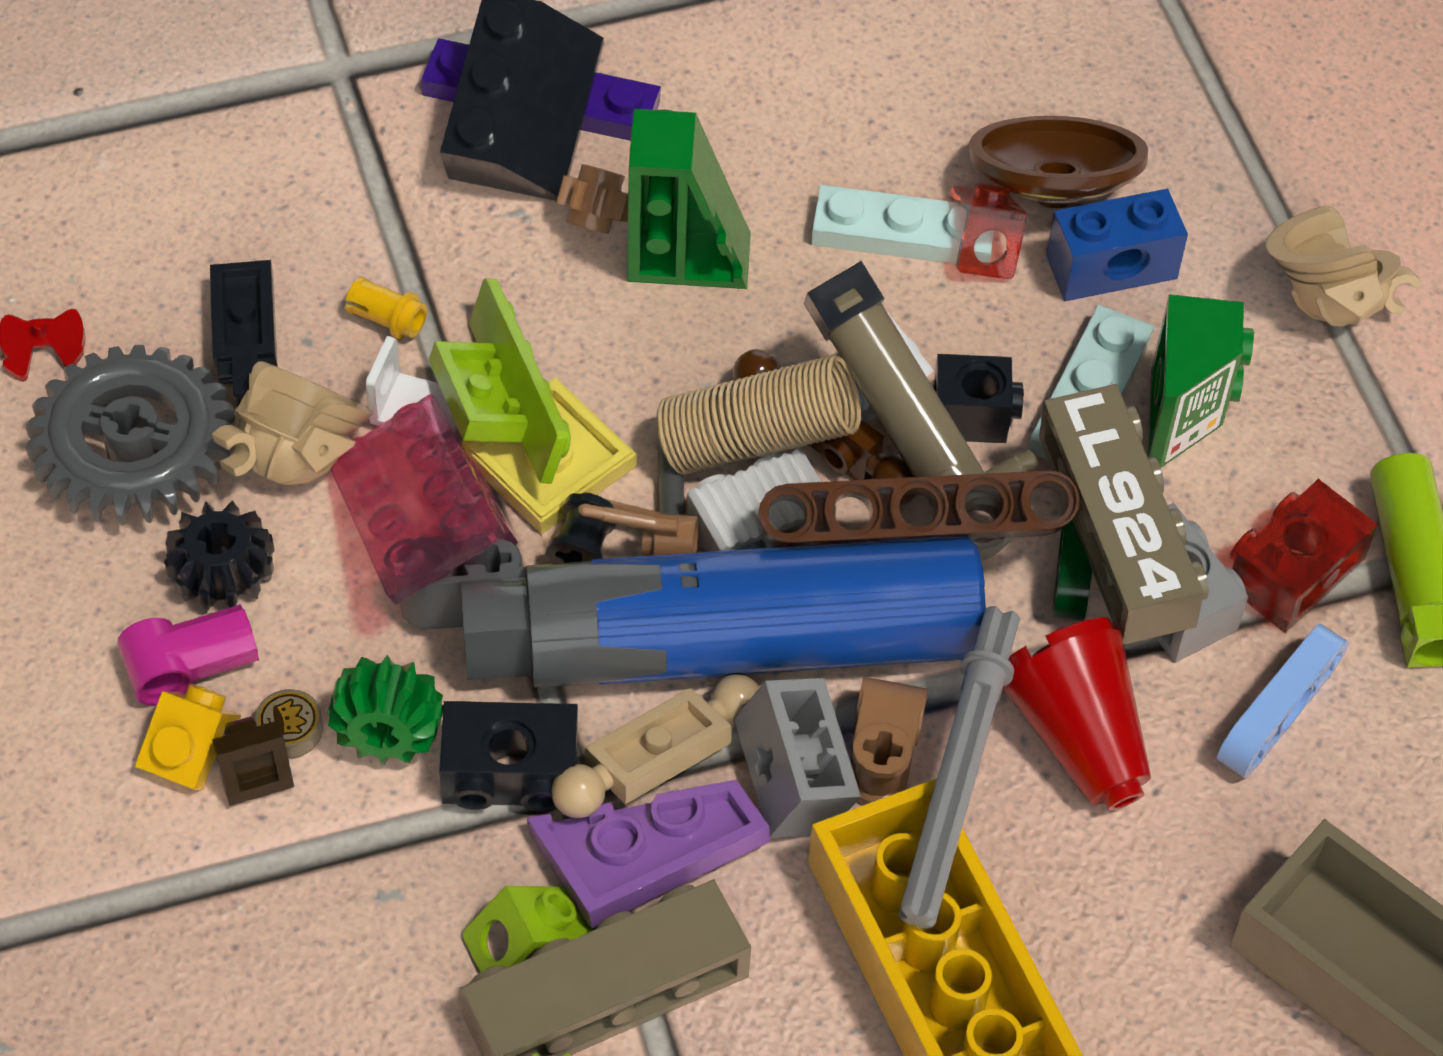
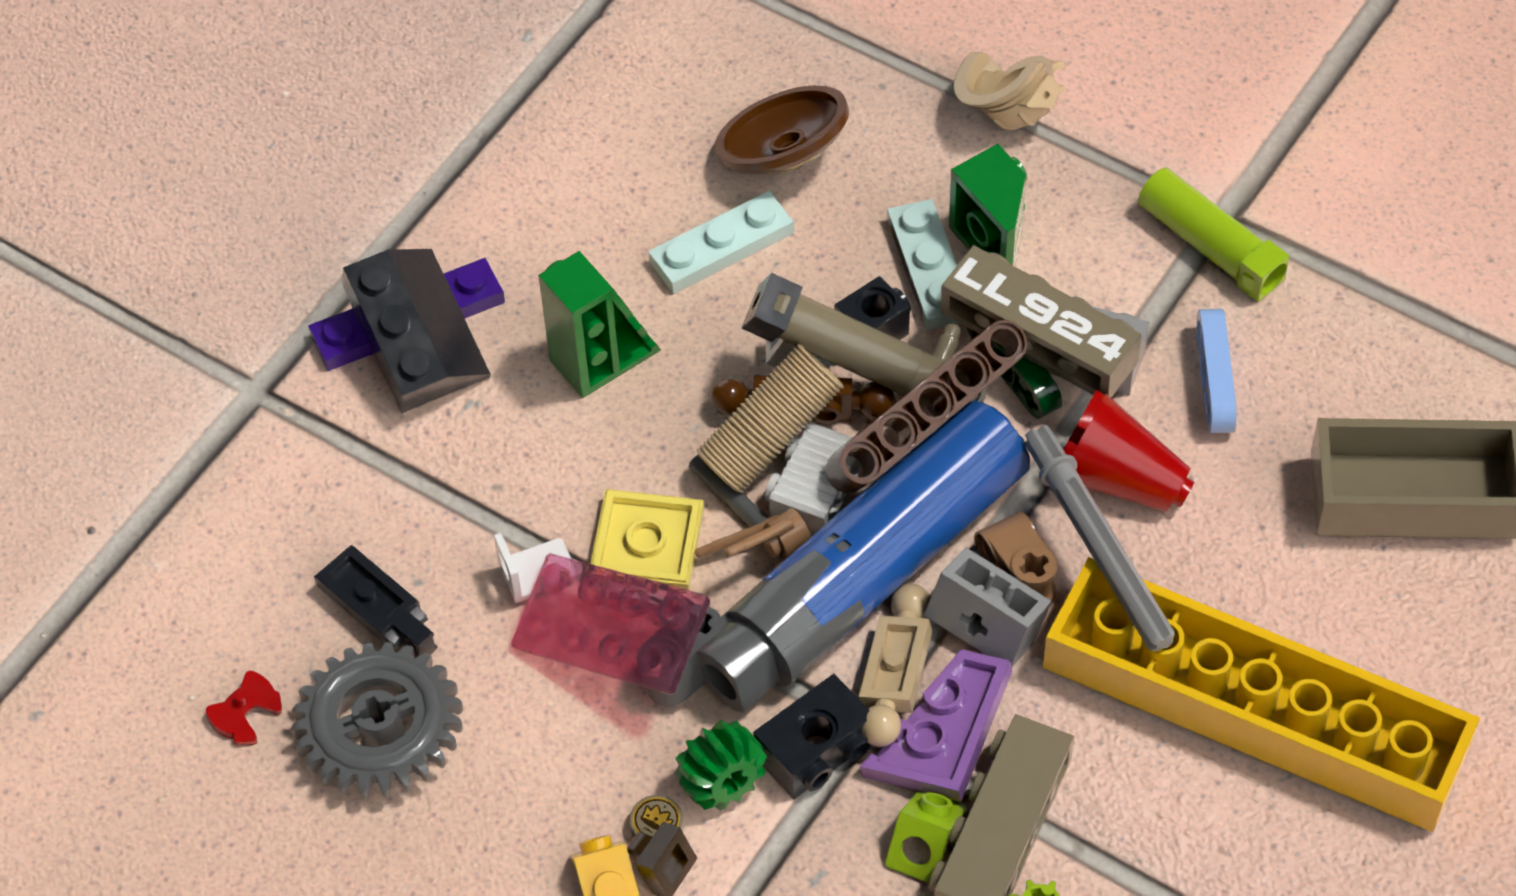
camera: 35 degrees left, 0 degrees up
(172, 656) = (547, 836): dark pink piece -> none
(219, 555) = (493, 756): black gear -> none
(288, 427) = (481, 638): tan helmet -> none
(398, 312) = (454, 522): yellow pin -> none
(498, 386) = (588, 515): lime bracket -> none
(580, 536) = (722, 573): black bush -> none
(594, 198) = (521, 357): medium nougat gear -> none
(989, 209) = (778, 196): clear red bracket -> none
(1116, 244) = (865, 163): blue brick -> none
(1320, 526) = (1146, 274): clear red brick -> none

